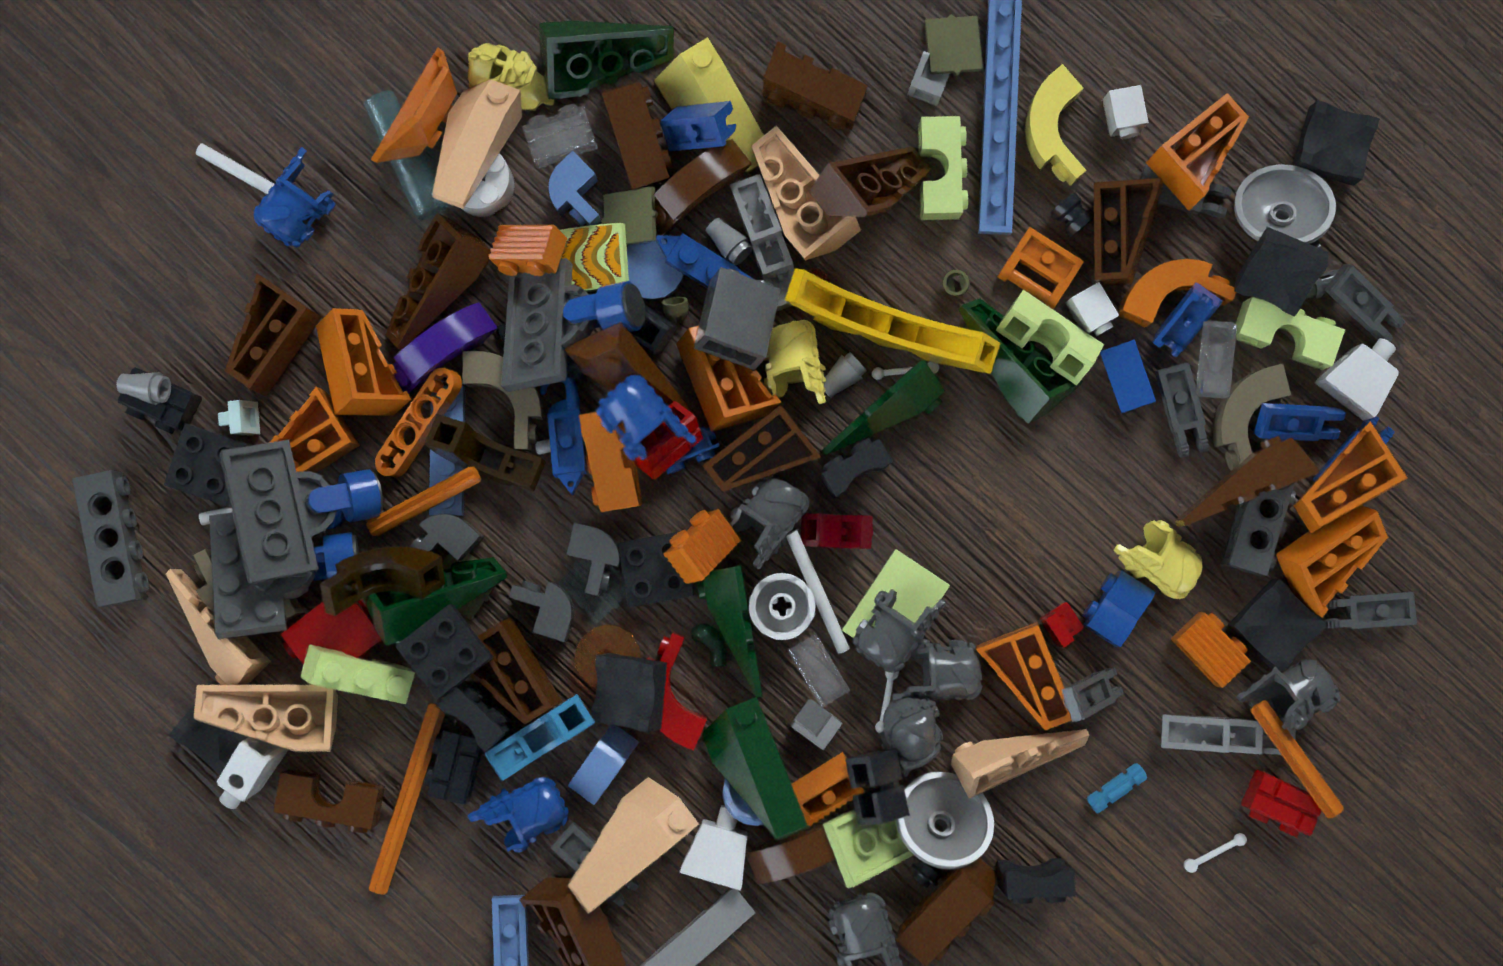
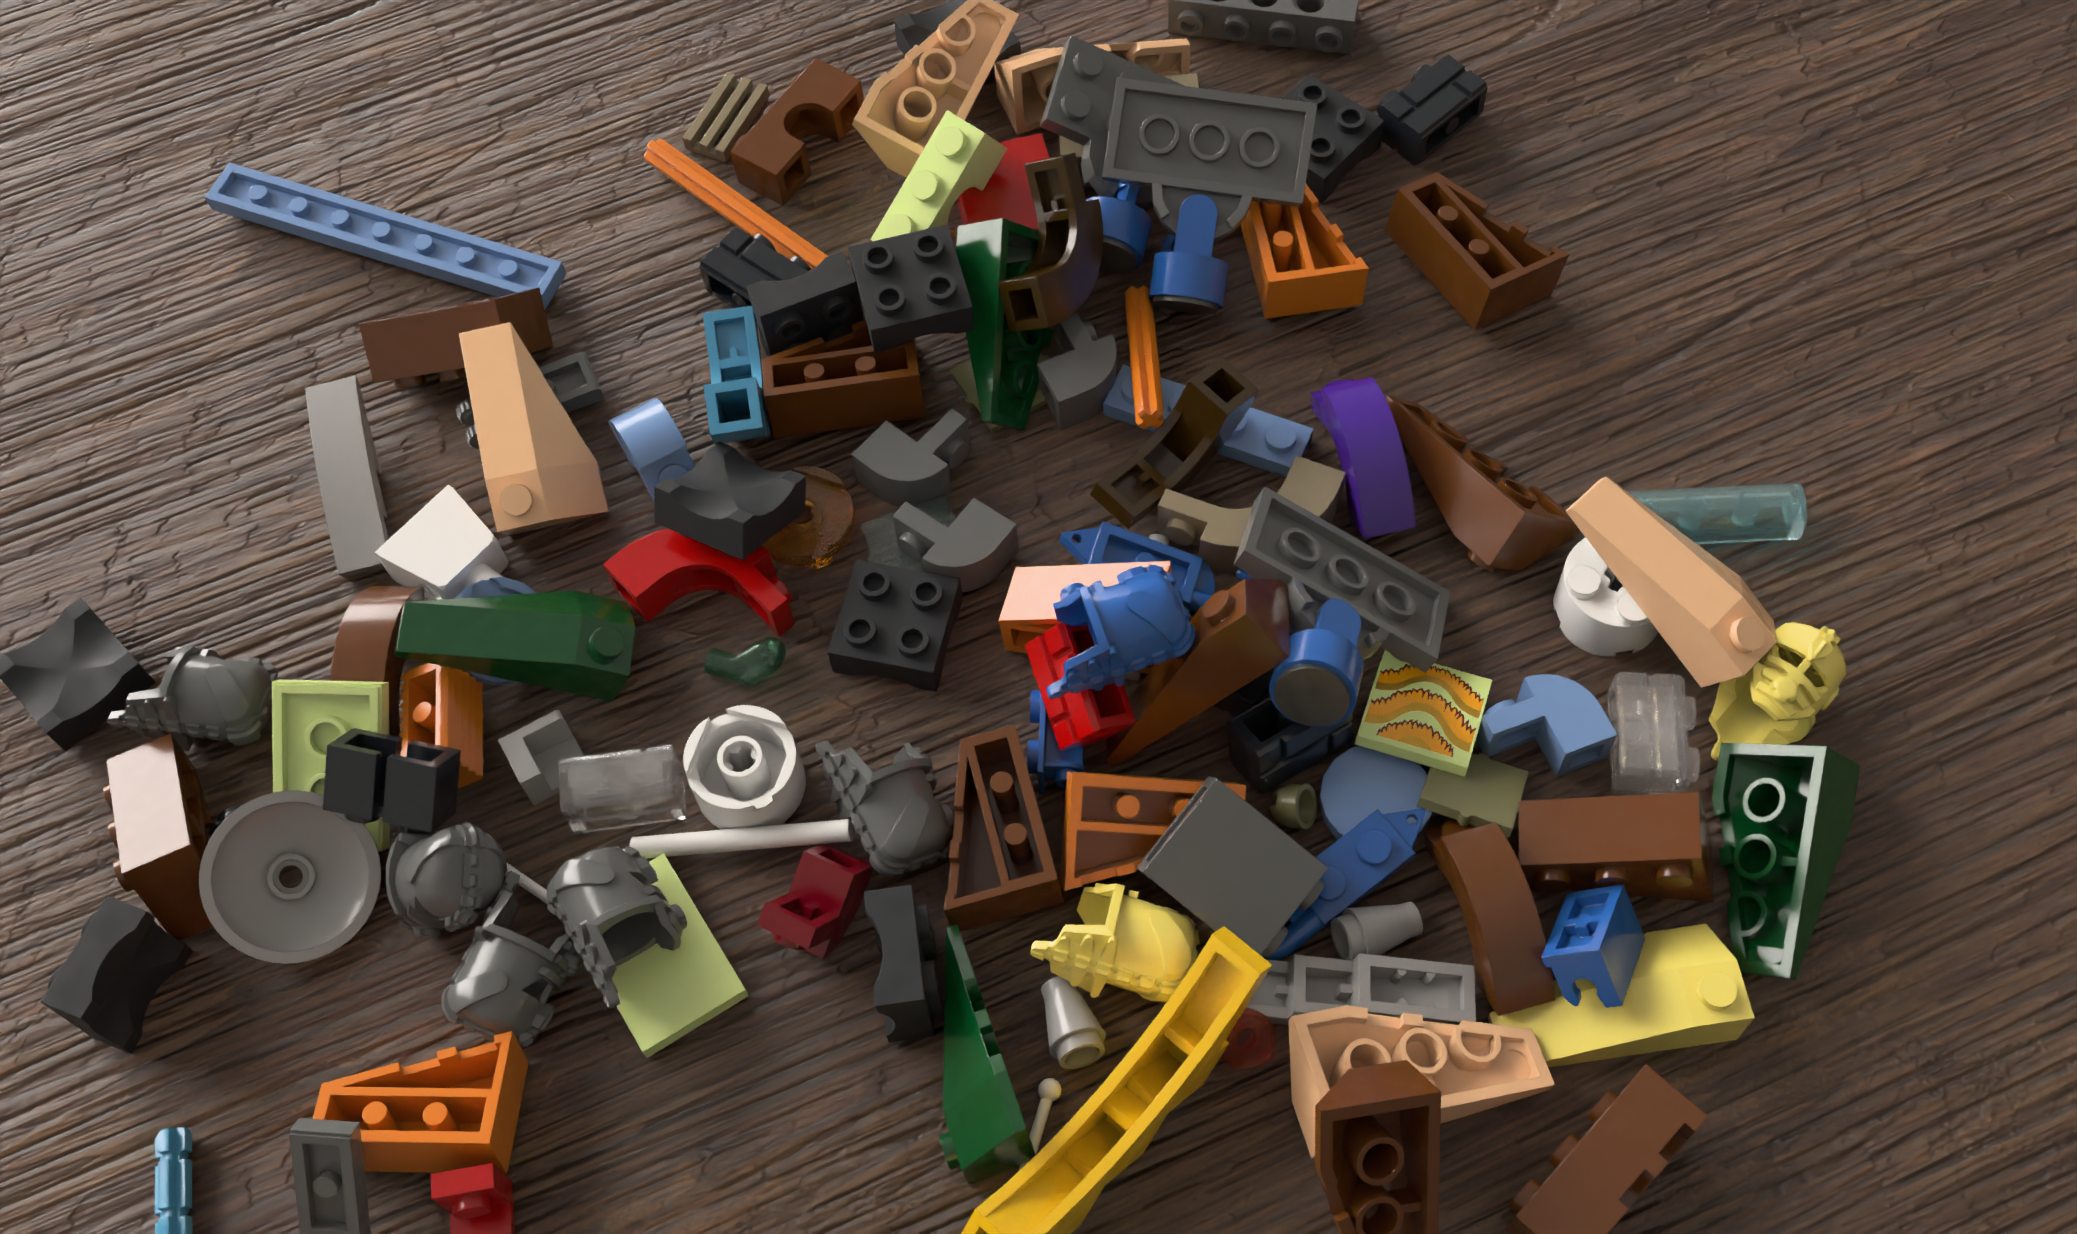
camera: 120 degrees right, 25 degrees down
(145, 386) = (1449, 82): light grey cone -> none
(234, 168) = (1735, 304): white bar -> none
(241, 417) = (1364, 190): light aqua tile -> none
(248, 770) = (879, 41): white torso -> none
(288, 206) = (1661, 337): blue helmet -> none
(303, 857) = (719, 113): none -> dark tan tile
(355, 366) = (1376, 335): orange wedge -> none
(414, 419) = (1297, 427): orange beam -> none
(421, 113) = (1752, 539): orange wedge -> none
(527, 249) = (1471, 612): orange brick -> none
(530, 810) = (647, 331): blue helmet -> none
(702, 546) = (894, 686): orange brick -> none
(728, 604) = (810, 698): dark green wedge -> none
(1000, 760) = (331, 986): light nougat wedge -> none

